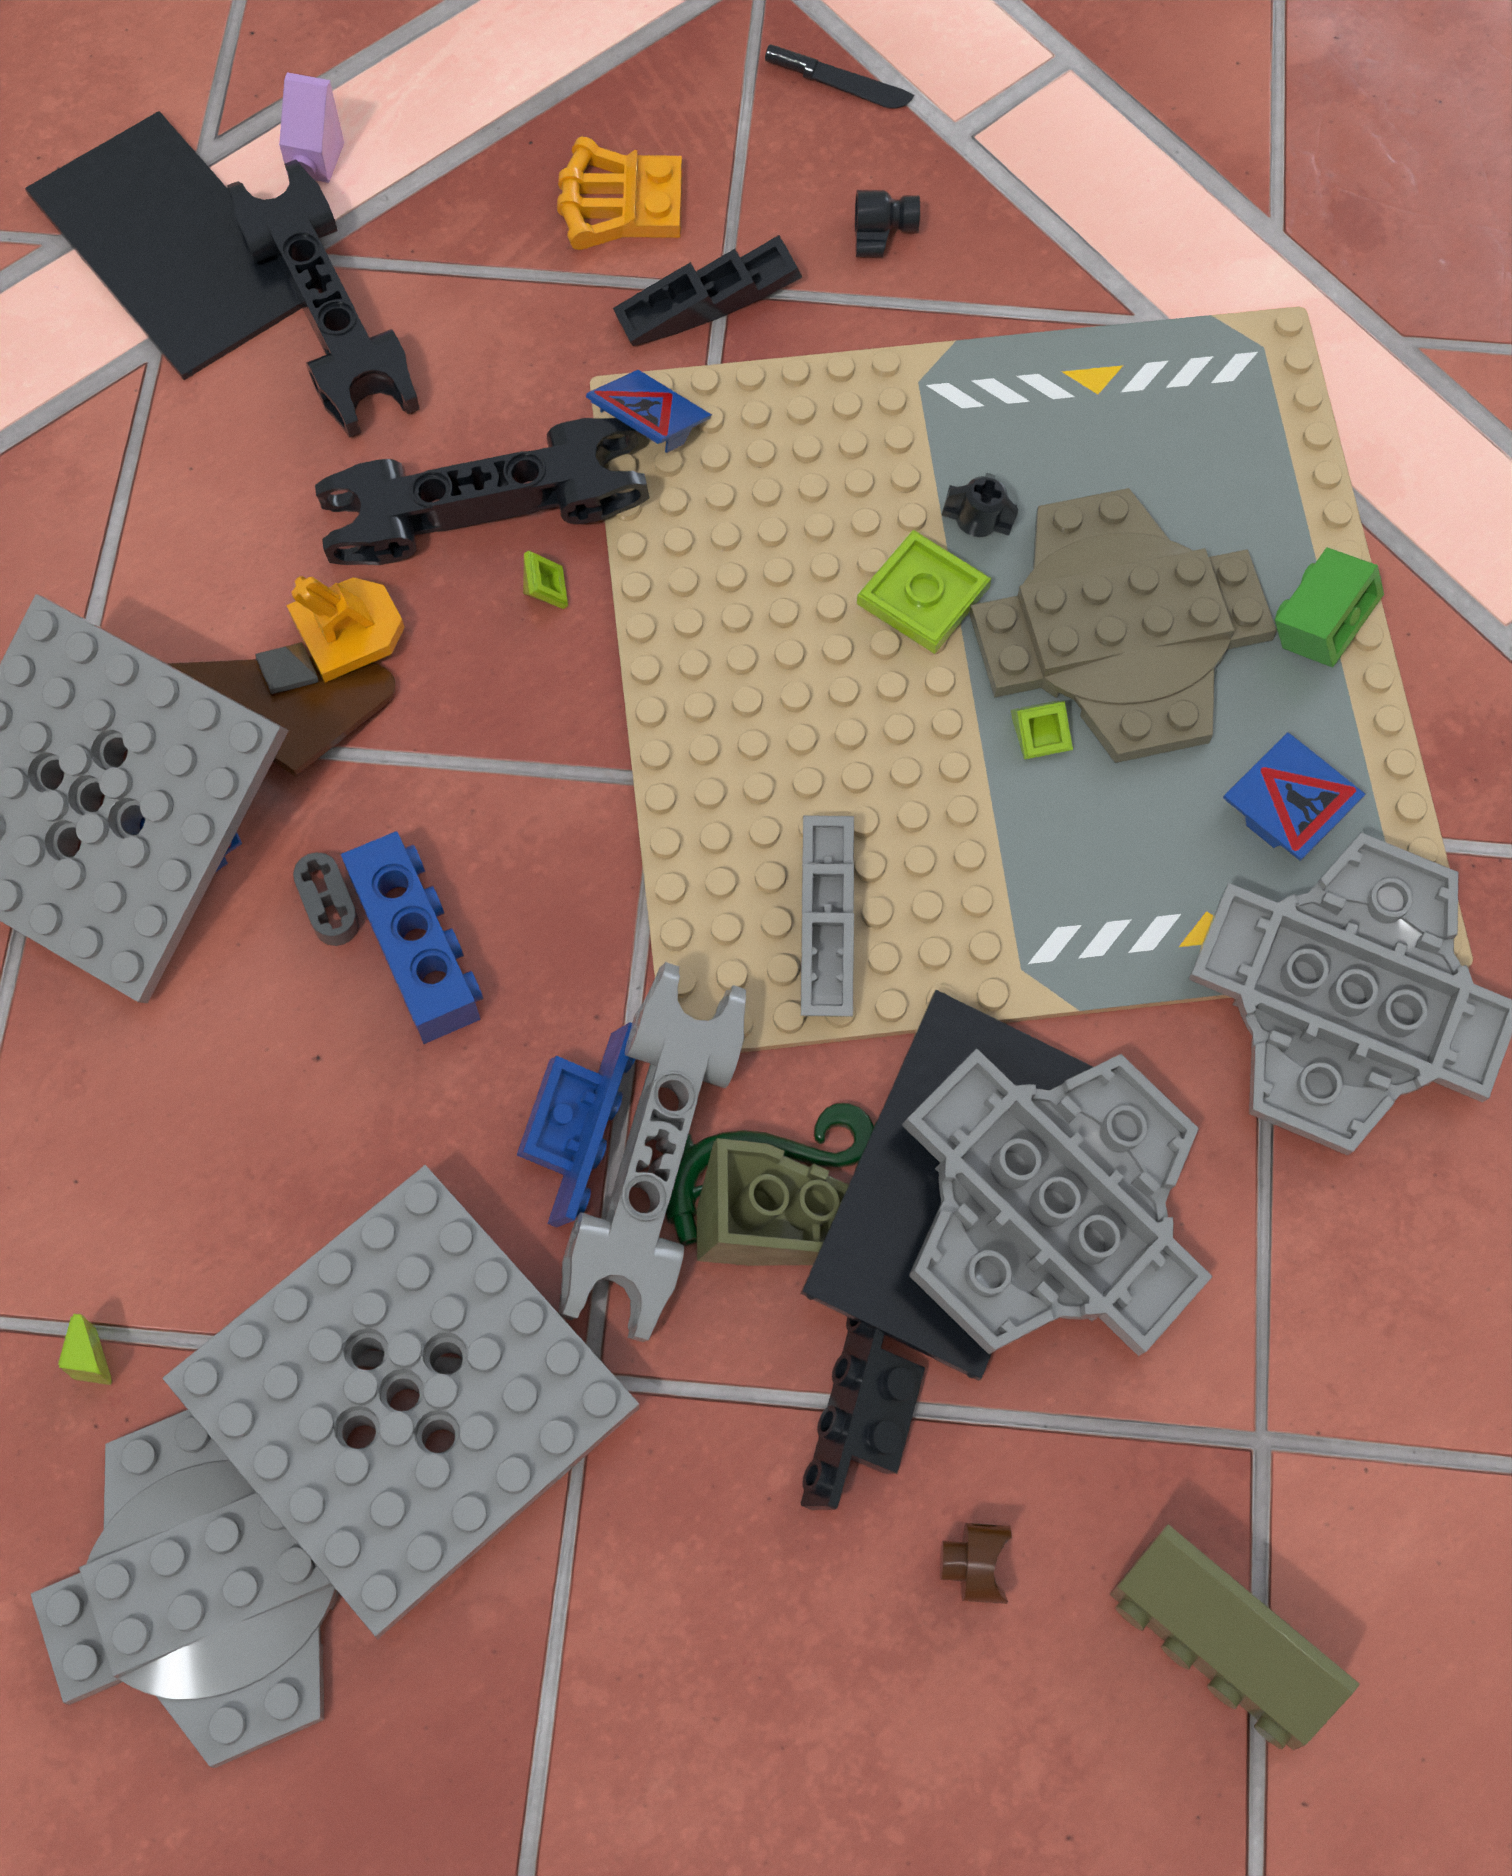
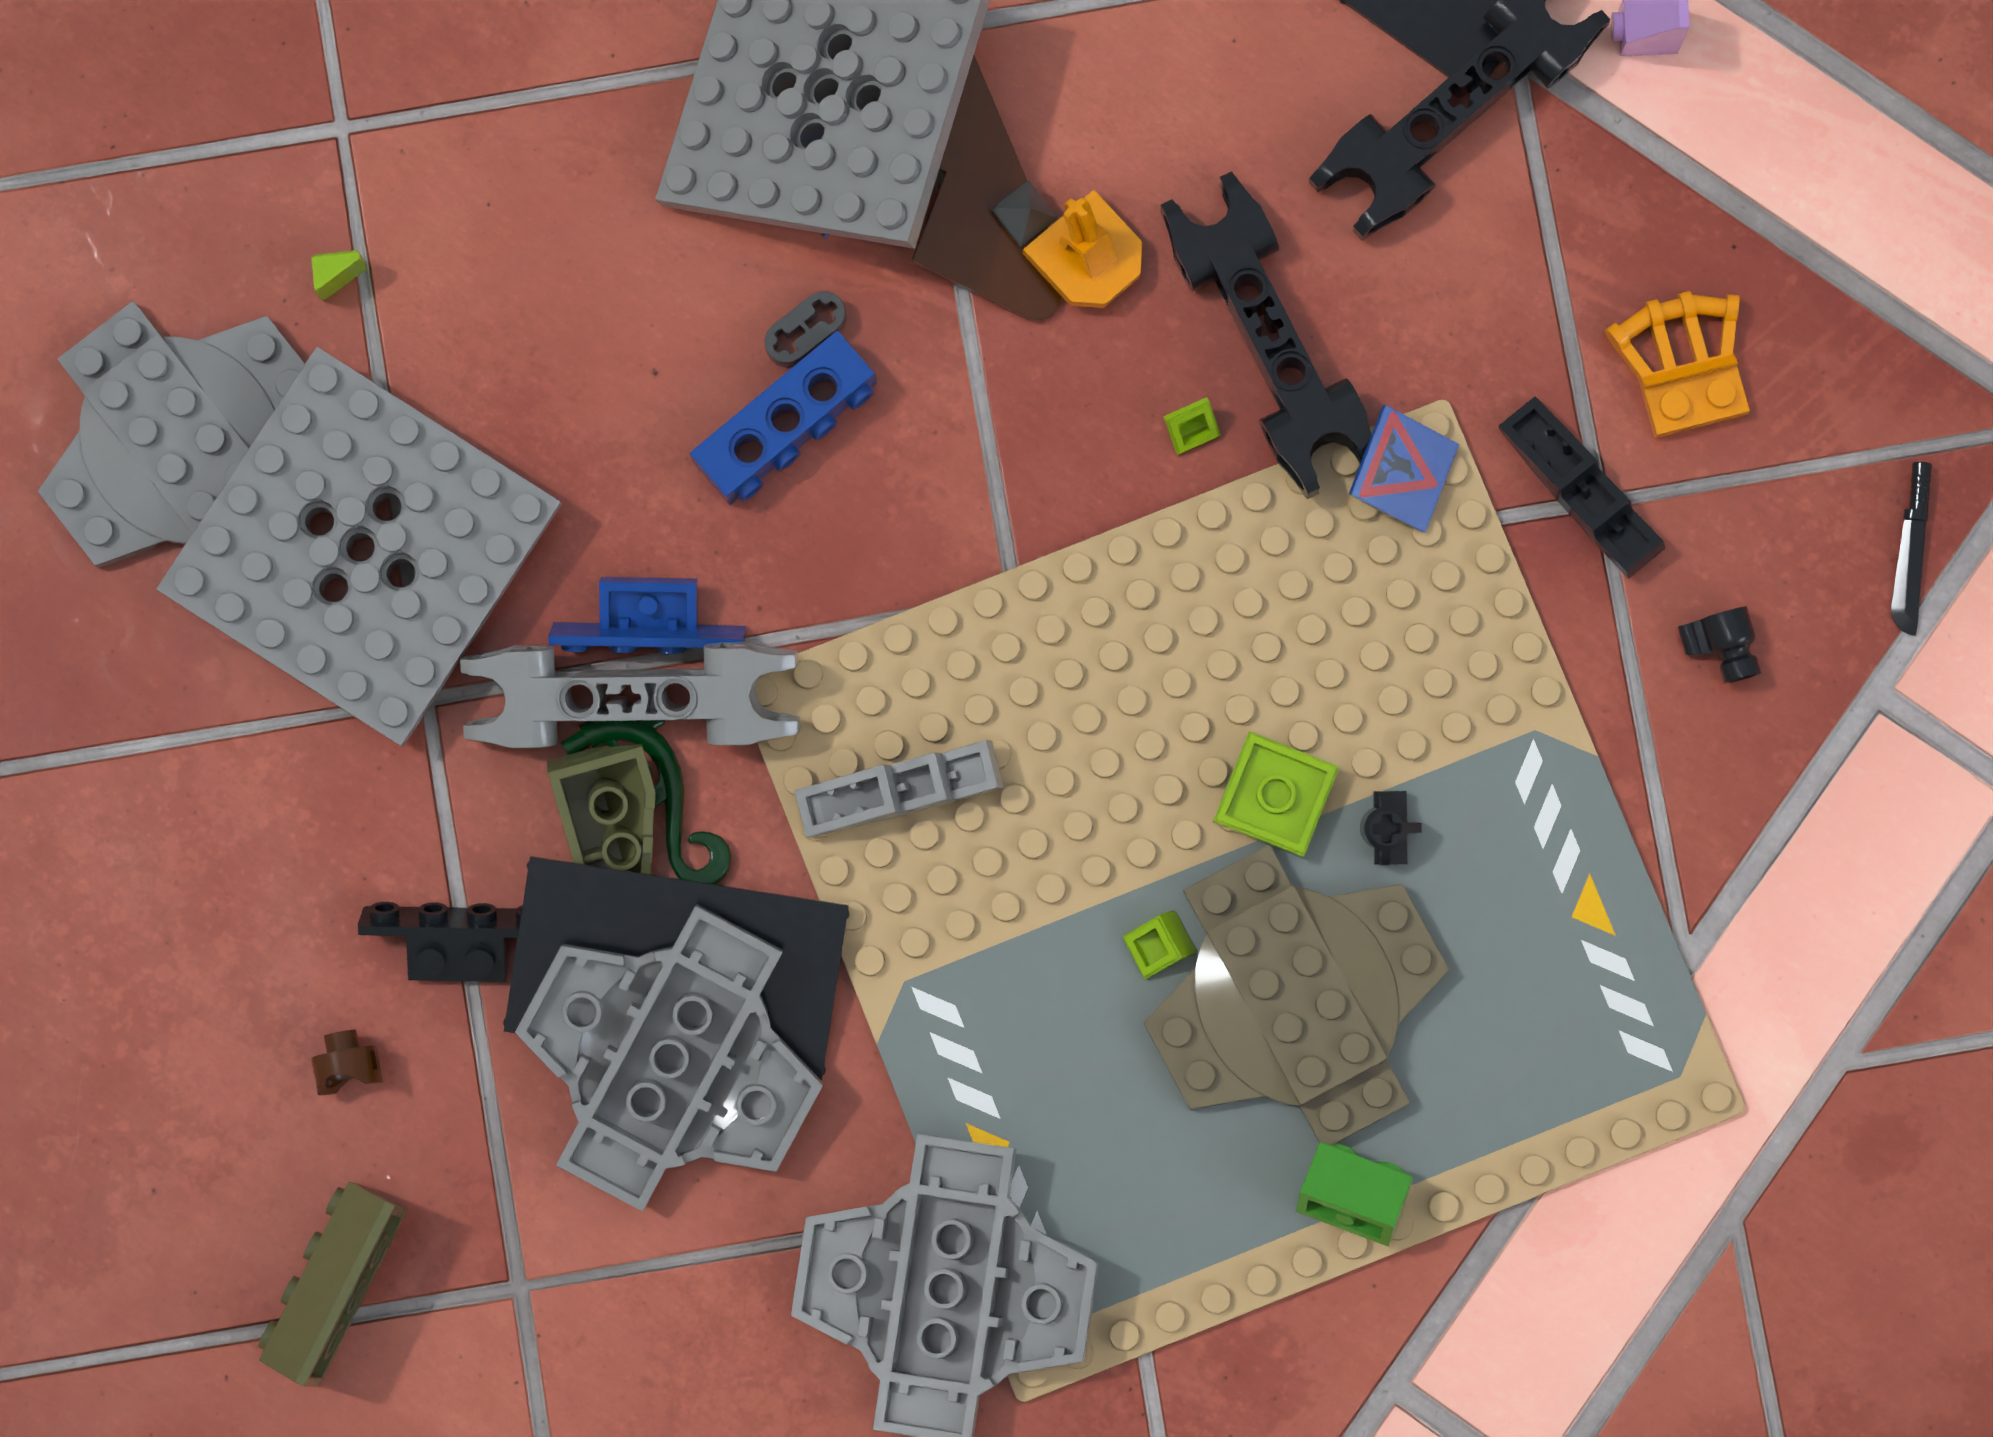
camera: 80 degrees right, 15 degrees up
(1293, 797) = (1139, 1198): blue piece -> none

